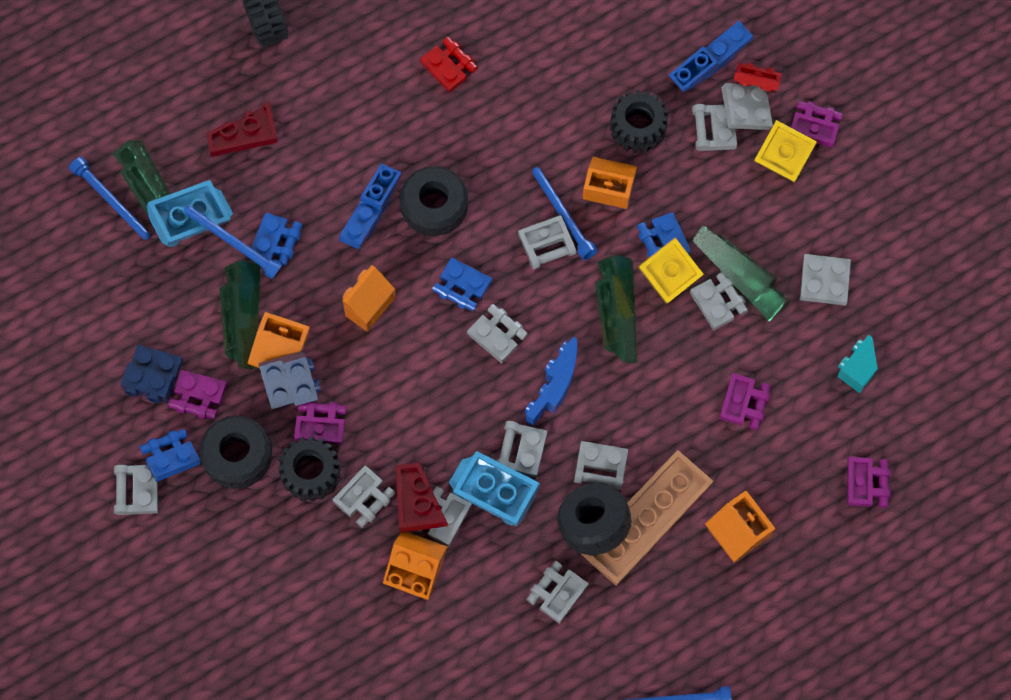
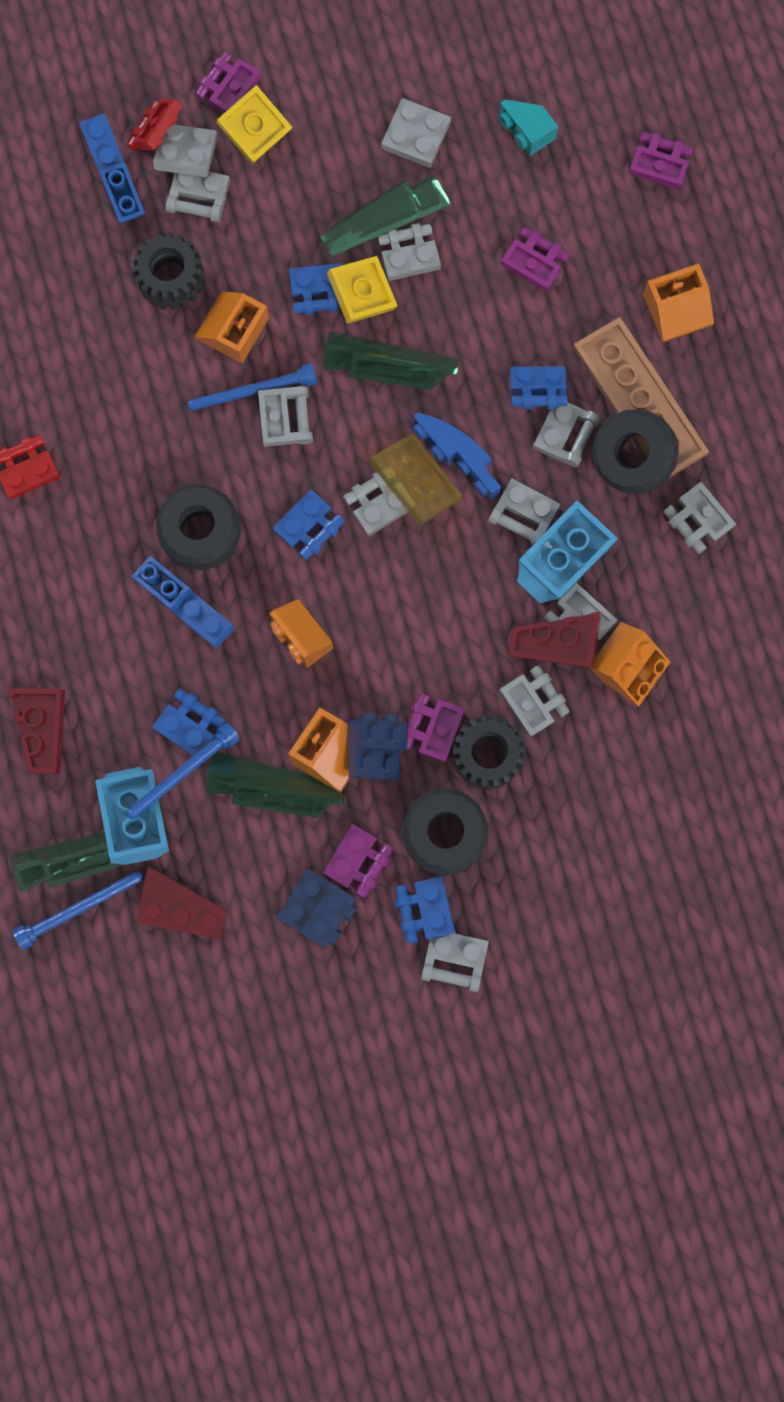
camera: 75 degrees left, 10 degrees up
(127, 271) = (177, 908): none -> dark red wing
(523, 355) = (415, 479): none -> clear yellow tile
(637, 430) = (538, 386): none -> blue plate

